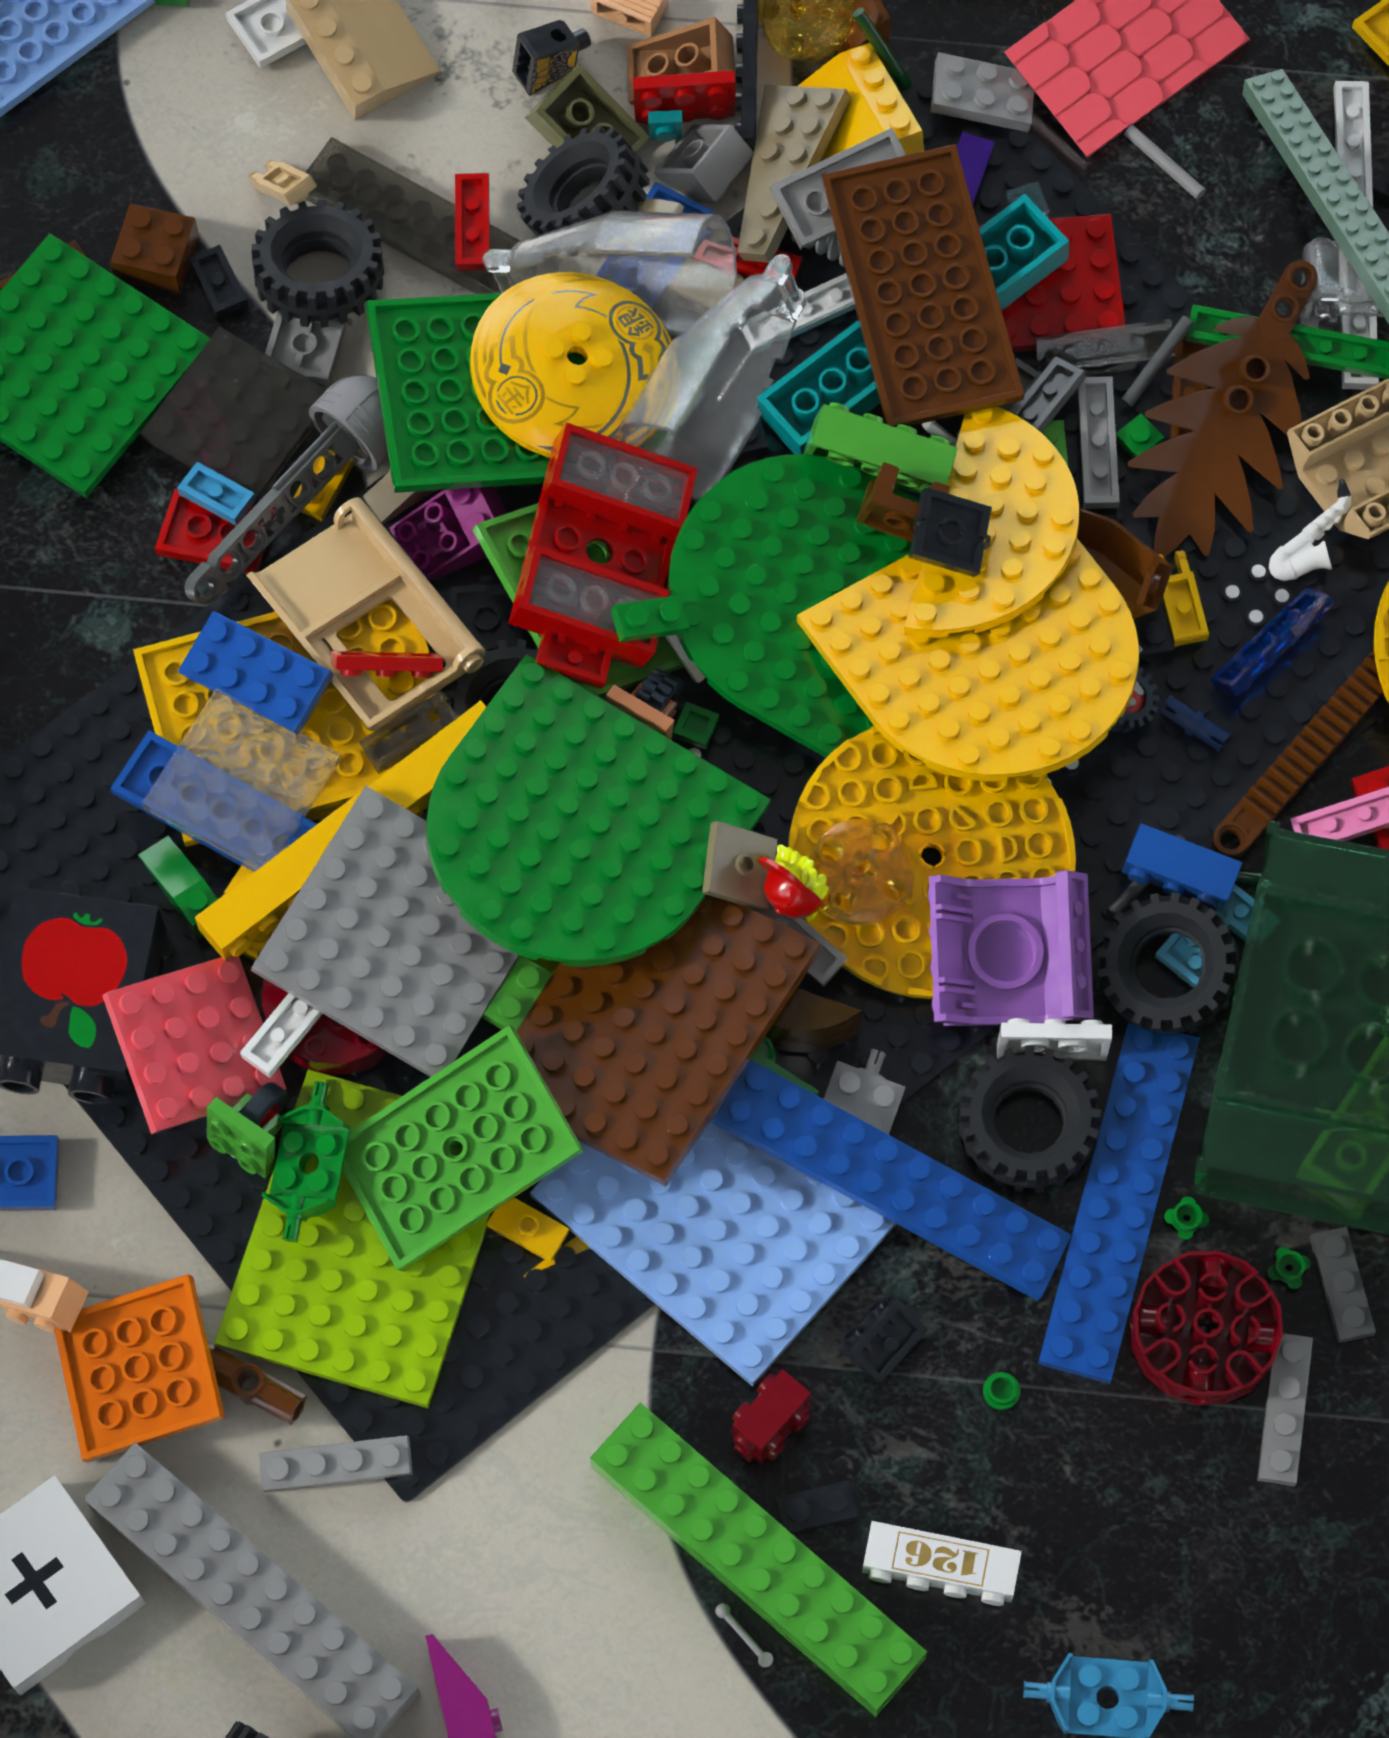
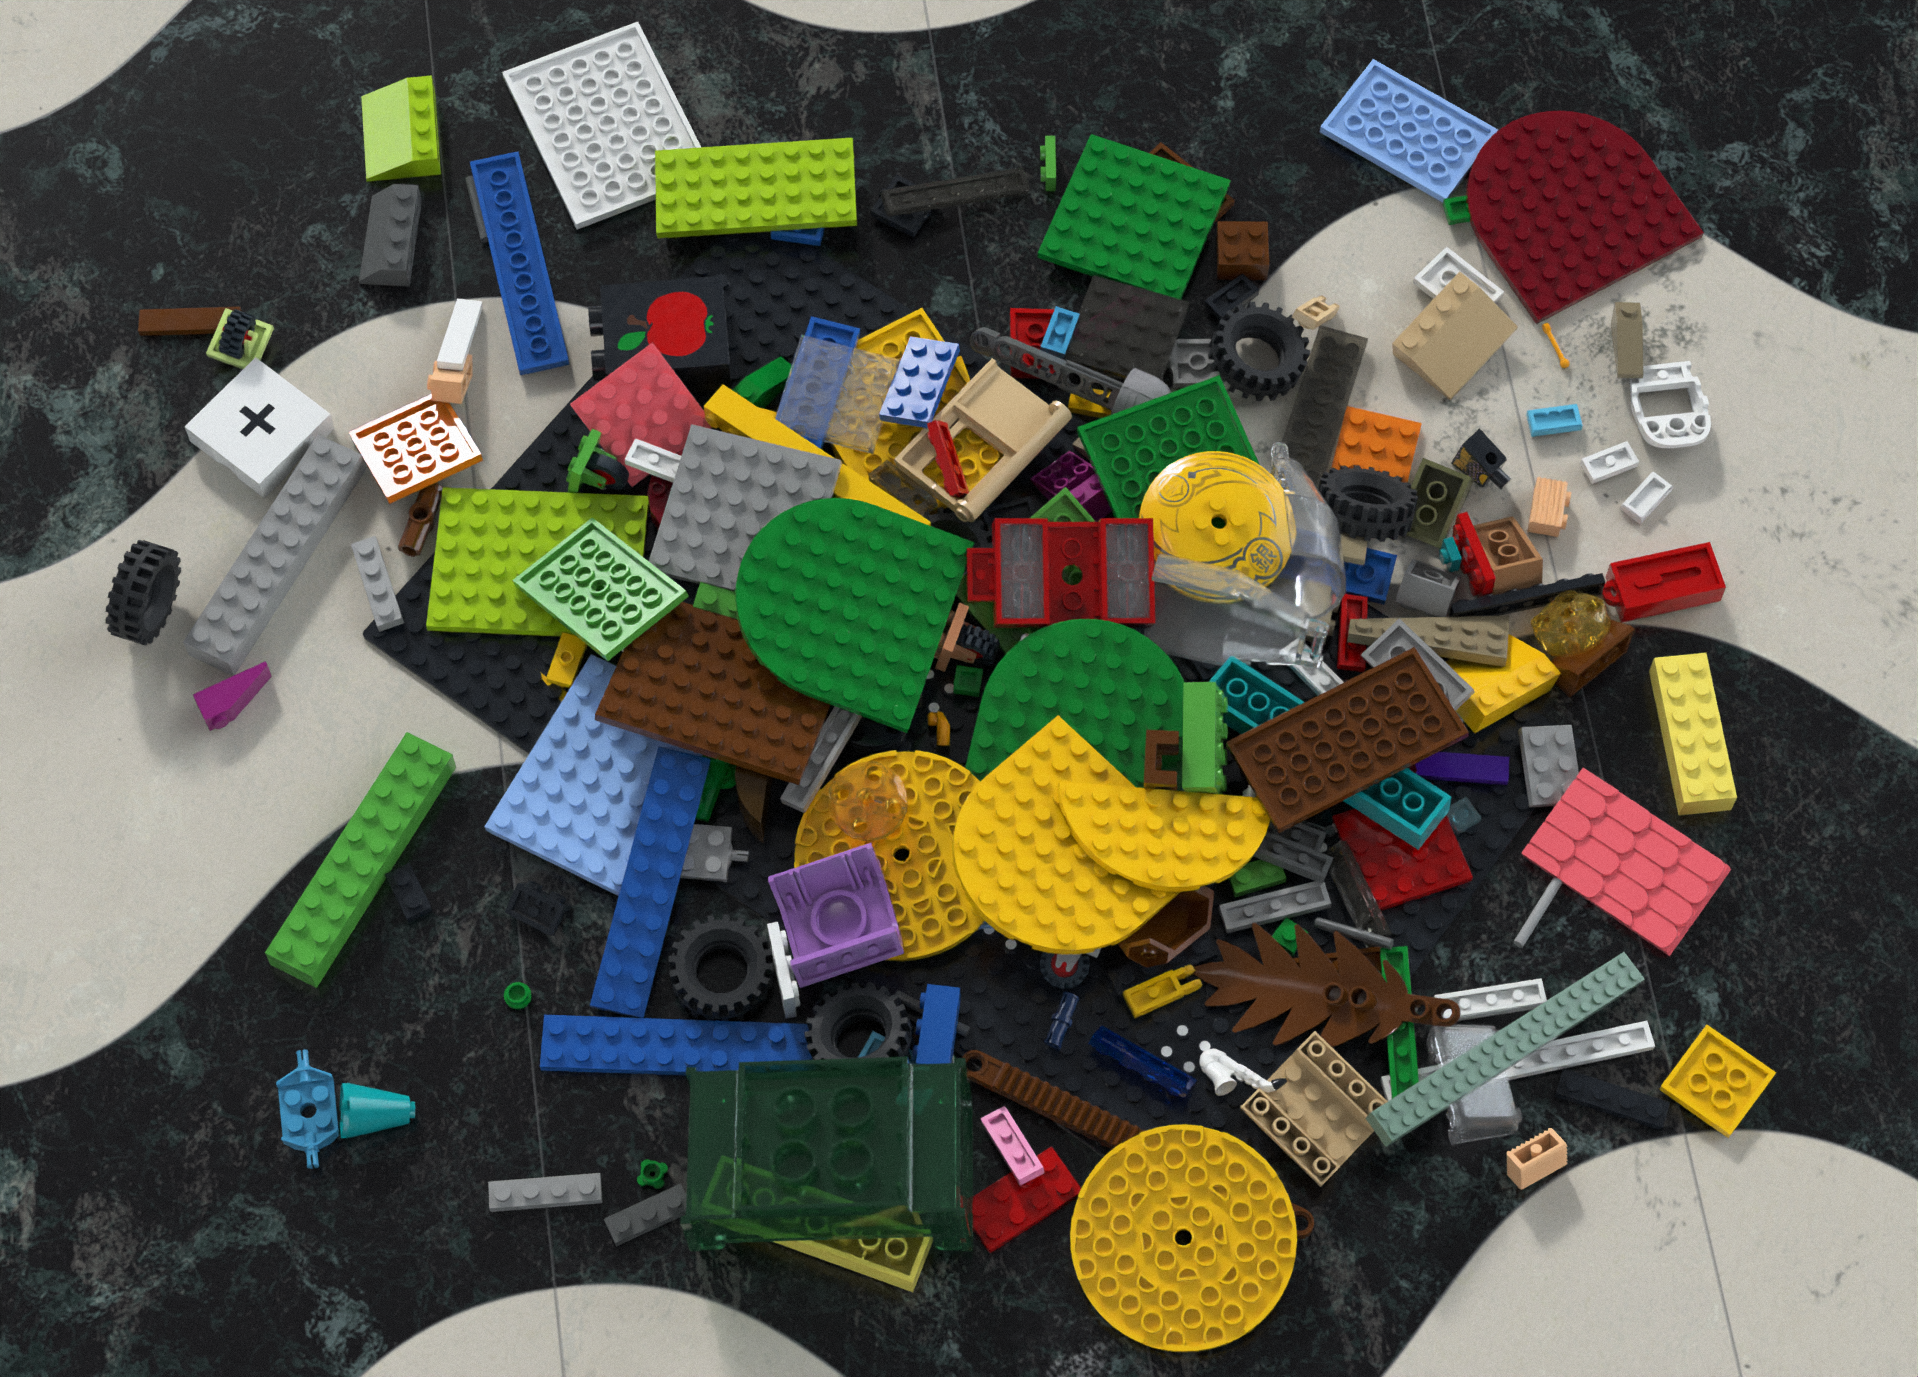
camera: 75 degrees right, 5 degrees down
(308, 1134) = (555, 507): green plate -> none
(471, 220) = (1325, 441): red plate -> none
(492, 149) = (1377, 442): none -> orange plate
(650, 618) = (1019, 612): green plate -> none
(733, 865) = (846, 715): dark tan plate -> none
(756, 771) = (943, 727): none -> light orange arm
(765, 1659) = (296, 883): light grey hinge -> none
(766, 1423) = (459, 841): dark red brick -> none
(793, 884) = (837, 750): red hair -> none
(882, 48) = (1556, 681): dark green bar -> none
(942, 1563) = (382, 979): white brick -> none
(950, 532) = (1137, 790): black plate -> none
(1132, 1612) = (371, 1110): none -> teal cone
(1190, 1208) = (674, 1087): green plate -> none
(1242, 1323) = (562, 1116): dark red brick -> none
(1266, 240) = (1497, 999): none -> white tile

